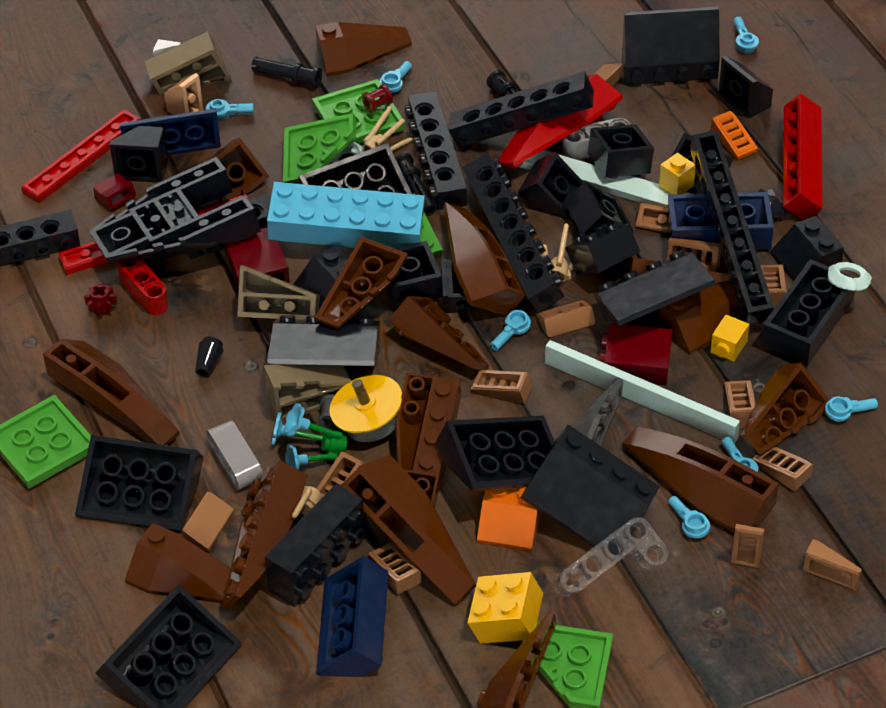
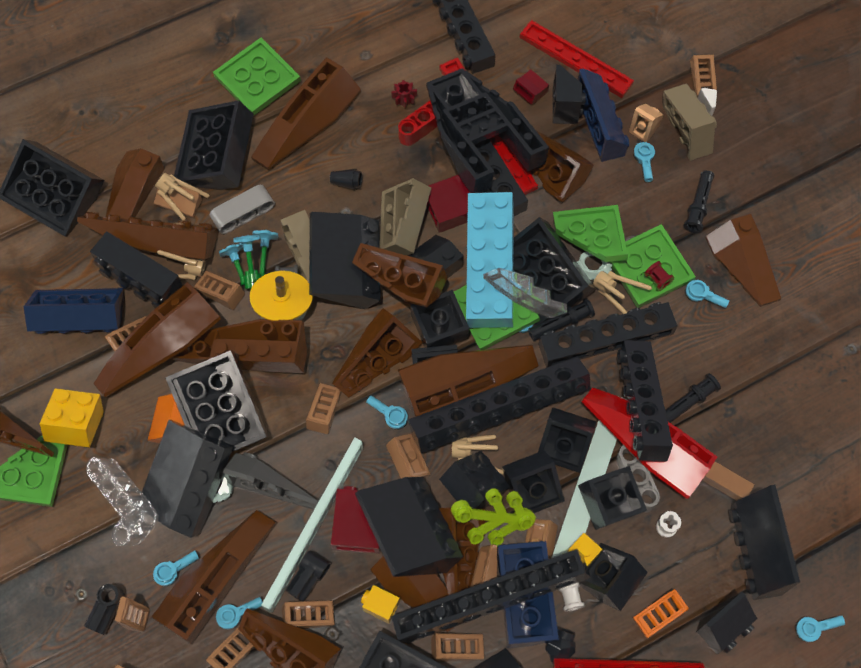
camera: 85 degrees right, 20 degrees up
(127, 56) = (707, 60): none -> medium nougat slope
(196, 514) = (168, 184): none -> tan plant
(398, 179) = (523, 292): none -> clear slope
(642, 241) = (520, 520): none -> lime plant
(648, 121) = (662, 527): none -> white bush
(693, 389) = (310, 571): none -> black piece
(737, 576) = (102, 611): none -> black piece

